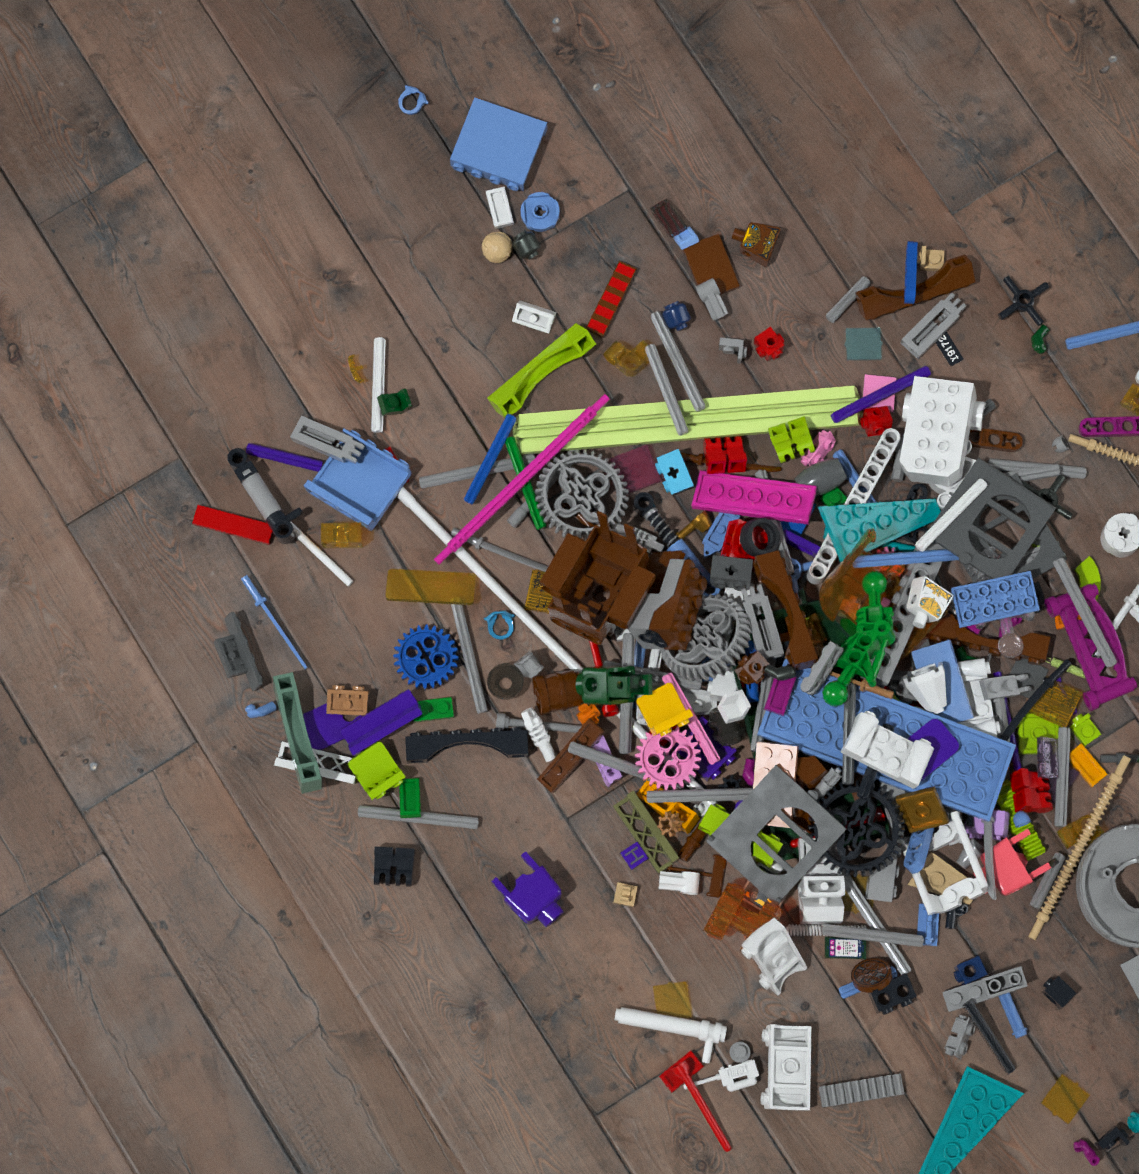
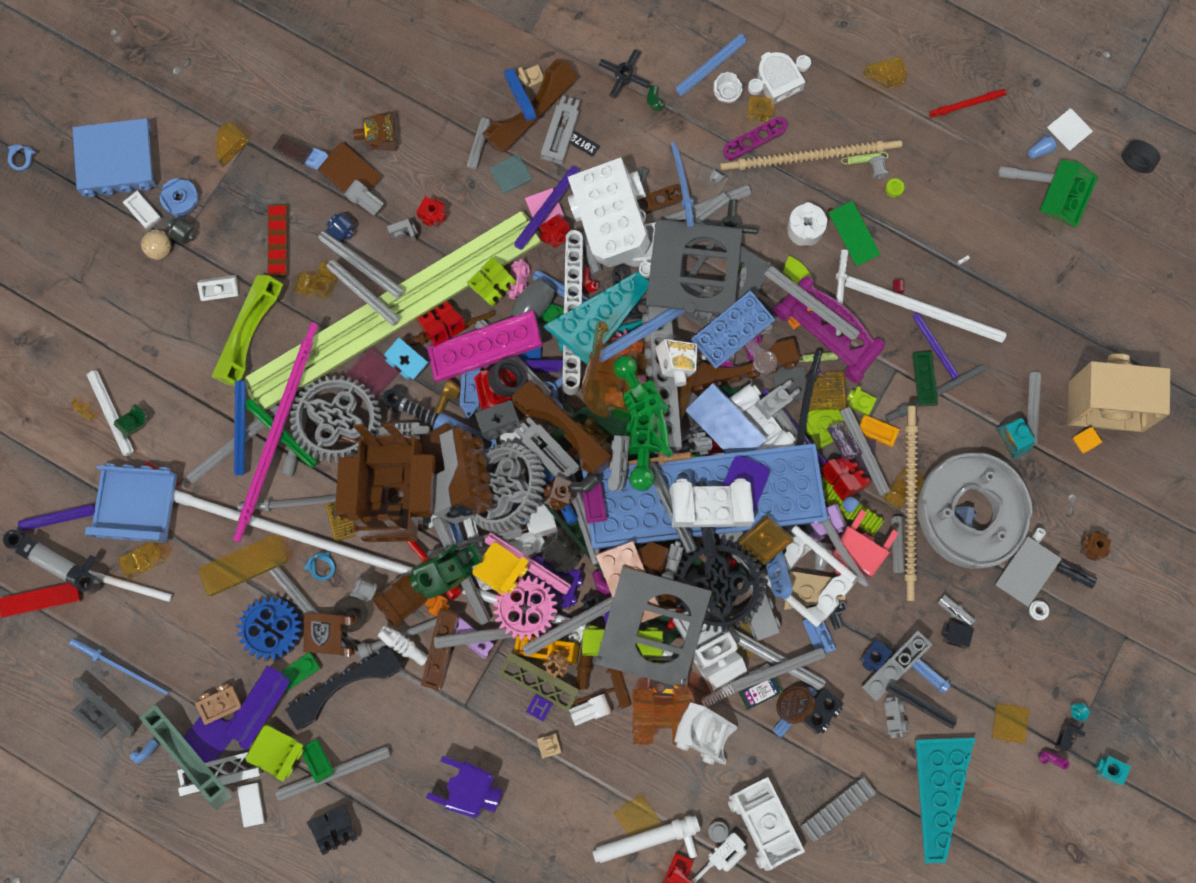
camera: 30 degrees left, 0 degrees up
(321, 439) = (82, 484): light grey hinge -> none
(331, 806) = (251, 805): none -> white tile
(473, 686) = (324, 633): none -> reddish brown flag
(612, 183) = (228, 143): none -> clear yellow slope
(734, 706) = (559, 534): white panel -> none
(882, 485) = (587, 283): none -> red arm
(928, 687) = (716, 432): white cone -> none
(976, 489) = (659, 277): white axle -> none
(1017, 456) = (687, 202): none -> medium blue sword
(1069, 970) = (956, 611): none -> light grey pin
(1116, 364) = (727, 87): none -> white hair
(1125, 886) = (965, 515): none -> sand blue tile

